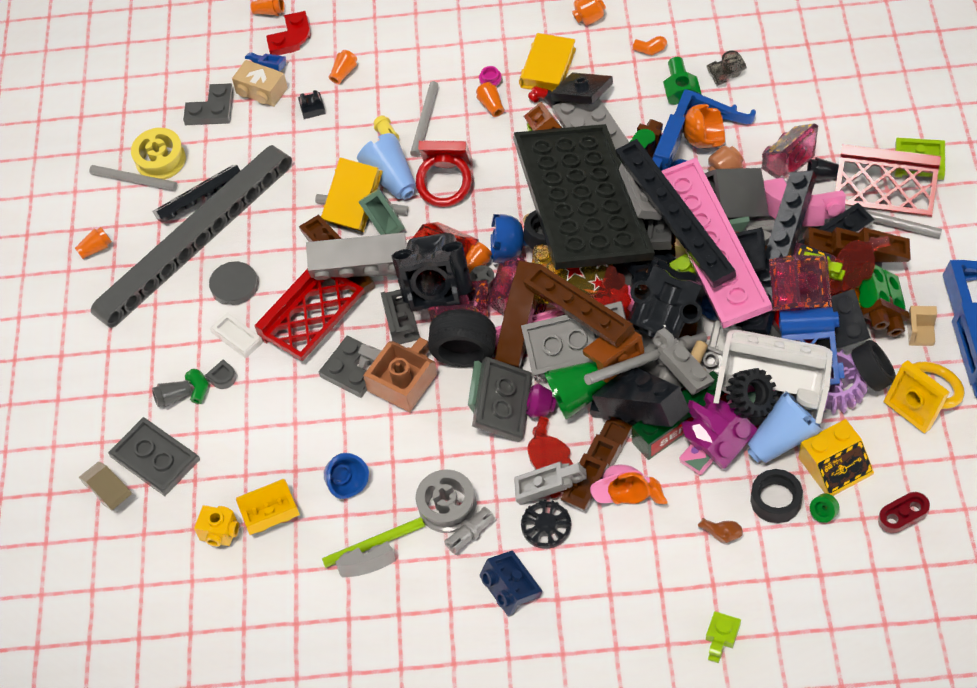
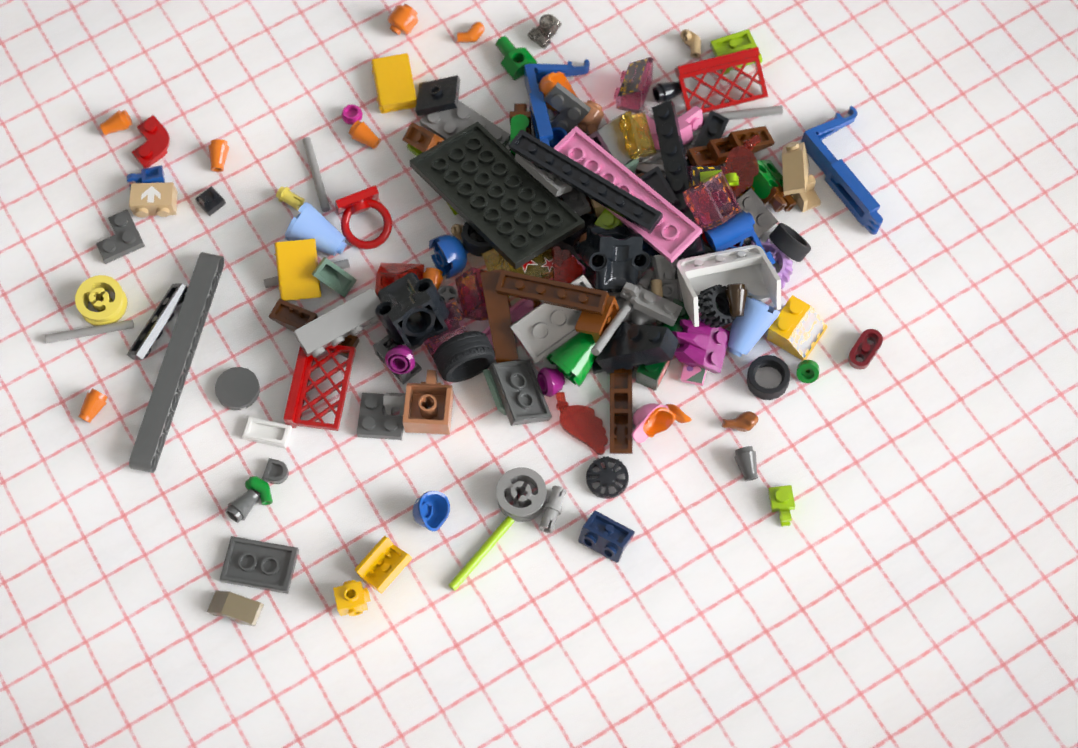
camera: 30 degrees left, 10 degrees up
(356, 564) = (480, 575): light grey slope -> none
(395, 314) = (400, 359): none -> magenta cone
(538, 92) = (401, 113): red arm -> none
(547, 481) = (593, 443): light grey hinge -> none
(704, 573) = (747, 462): none -> dark grey cone
(705, 141) = (570, 108): none -> dark grey plate
(760, 193) = (637, 135): none -> clear yellow bracket
(775, 391) = (736, 299): none -> dark brown cone
(877, 131) = (692, 41): none -> tan arm
(919, 291) = (794, 168): none -> tan slope
(921, 397) = (833, 252): yellow tile -> none

